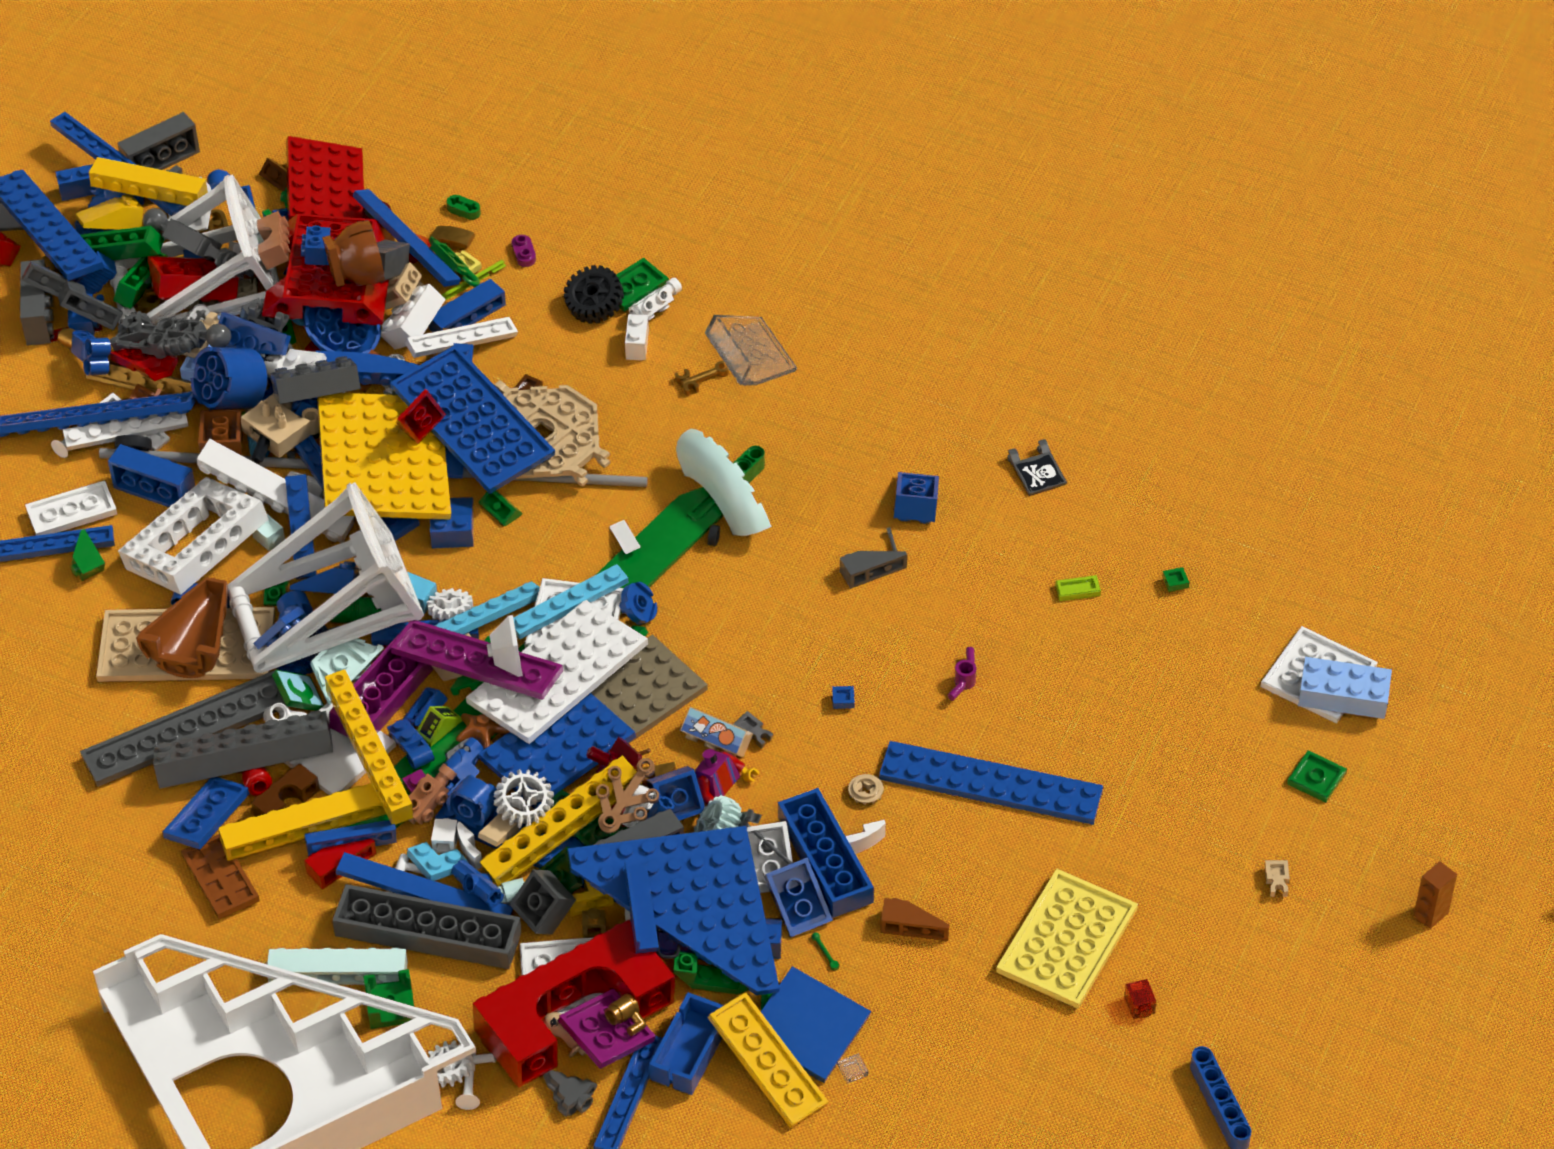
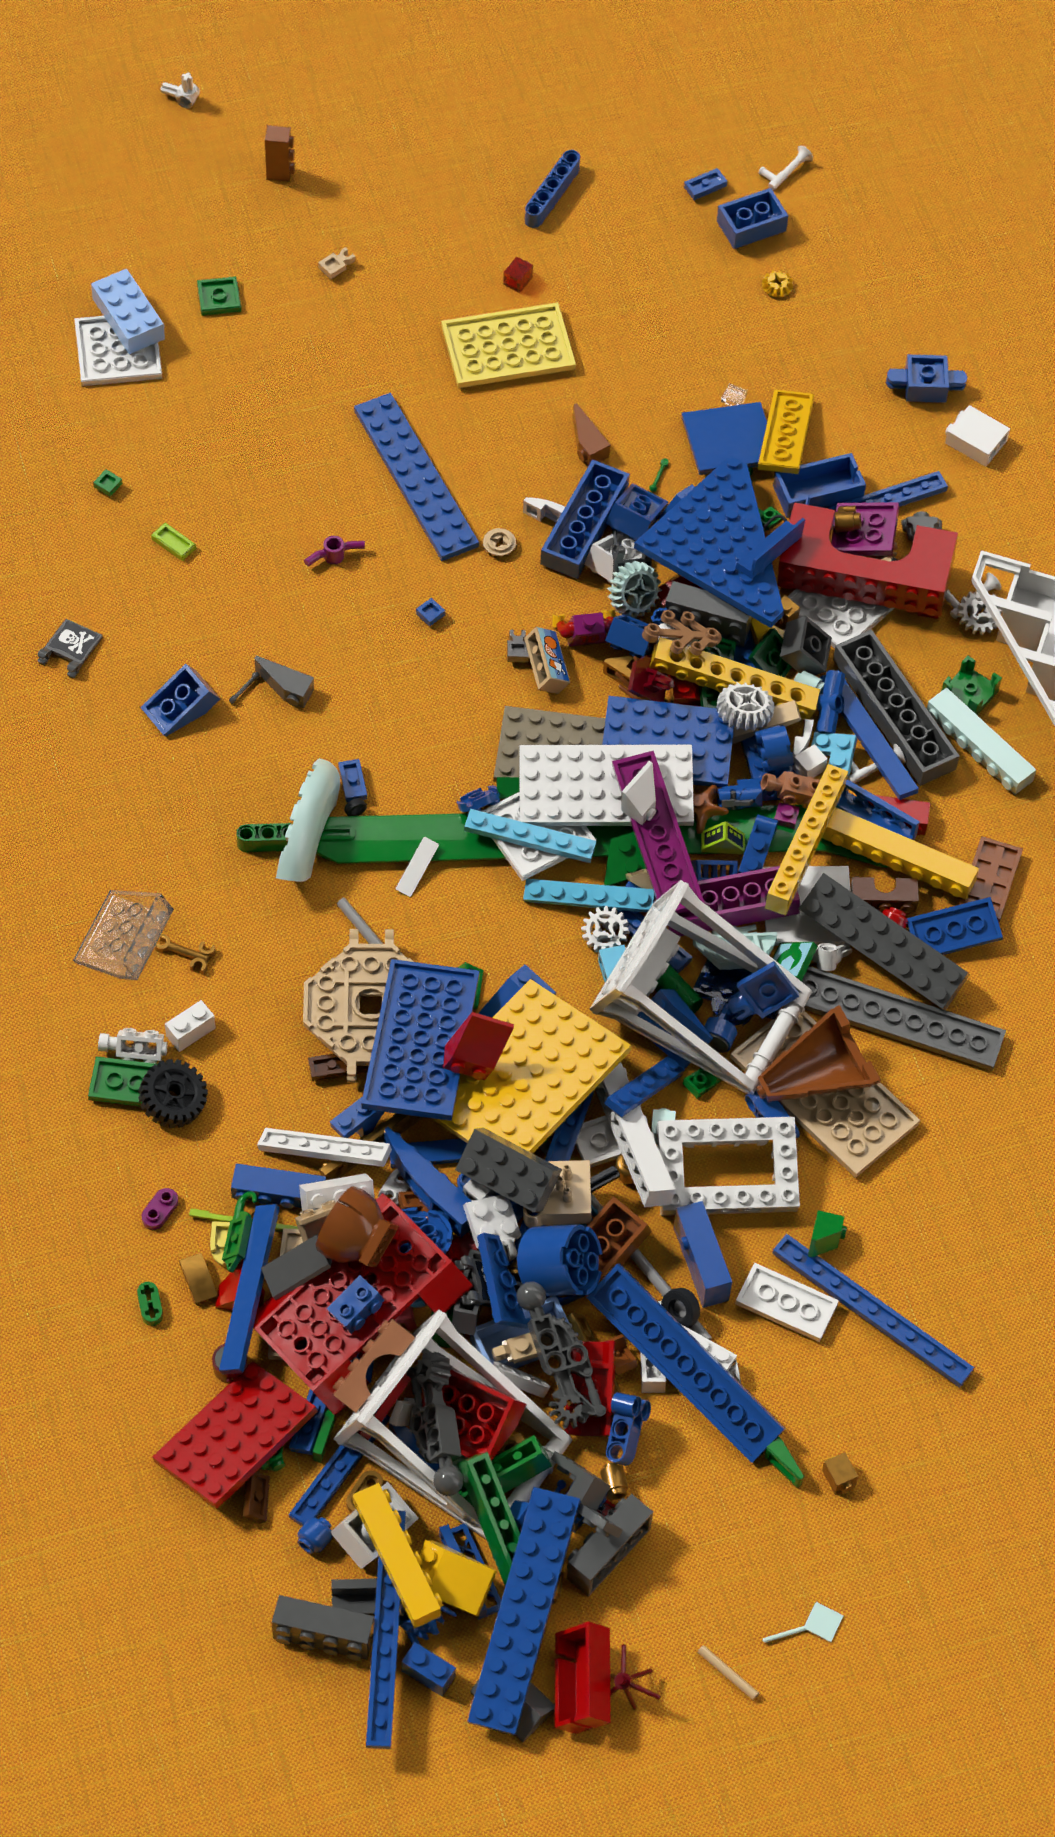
camera: 135 degrees left, 10 degrees up
(740, 550) = (352, 780): none -> blue plate

